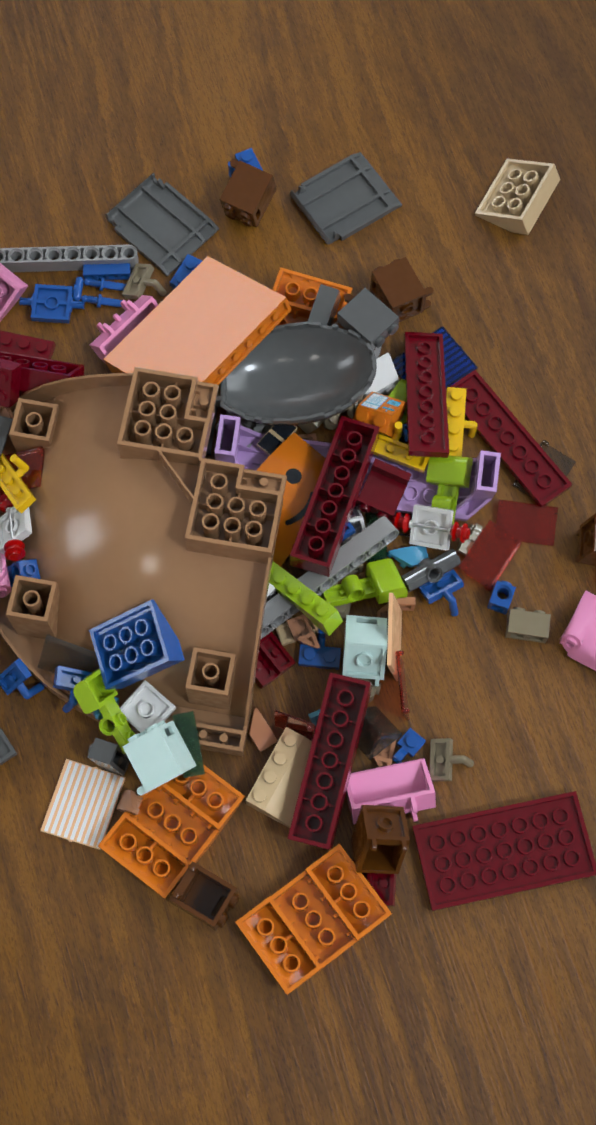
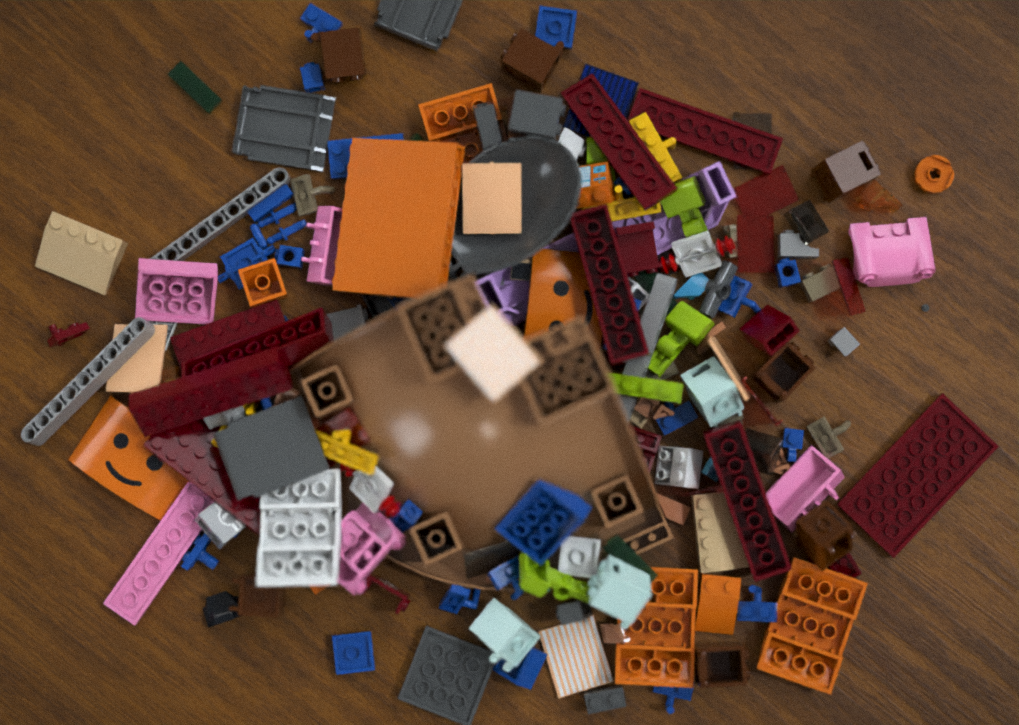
camera: 30 degrees left, 15 degrees up
(29, 773) = (526, 671): none -> blue slope
(32, 733) = (504, 634): none -> light aqua container
(53, 322) = (262, 283): none -> orange slope
(79, 857) = (604, 699): none -> dark grey brick
(90, 311) = (296, 262): none -> blue brick
(114, 154) = (195, 87): none -> clear green plate
(147, 895) = (672, 692): none -> blue plate
(187, 454) = (492, 353): none -> piece
(210, 201) = (312, 77): none -> blue brick
(241, 842) = (717, 603): none -> orange slope
(274, 871) = (757, 610): none -> blue plate
(286, 365) = (491, 198): none -> light nougat piece
(292, 696) = (678, 467): none -> white slope
(433, 677) = (778, 377): none -> reddish brown container
(442, 281) = (556, 26): none -> blue plate
(452, 629) = (769, 330): none -> dark red brick
(514, 686) = (843, 341): none -> light grey panel
(521, 577) = (792, 247): none -> light grey arch
(547, 566) = (807, 222): none -> clear smoke slope
(549, 640) = (848, 286): none -> clear red piece

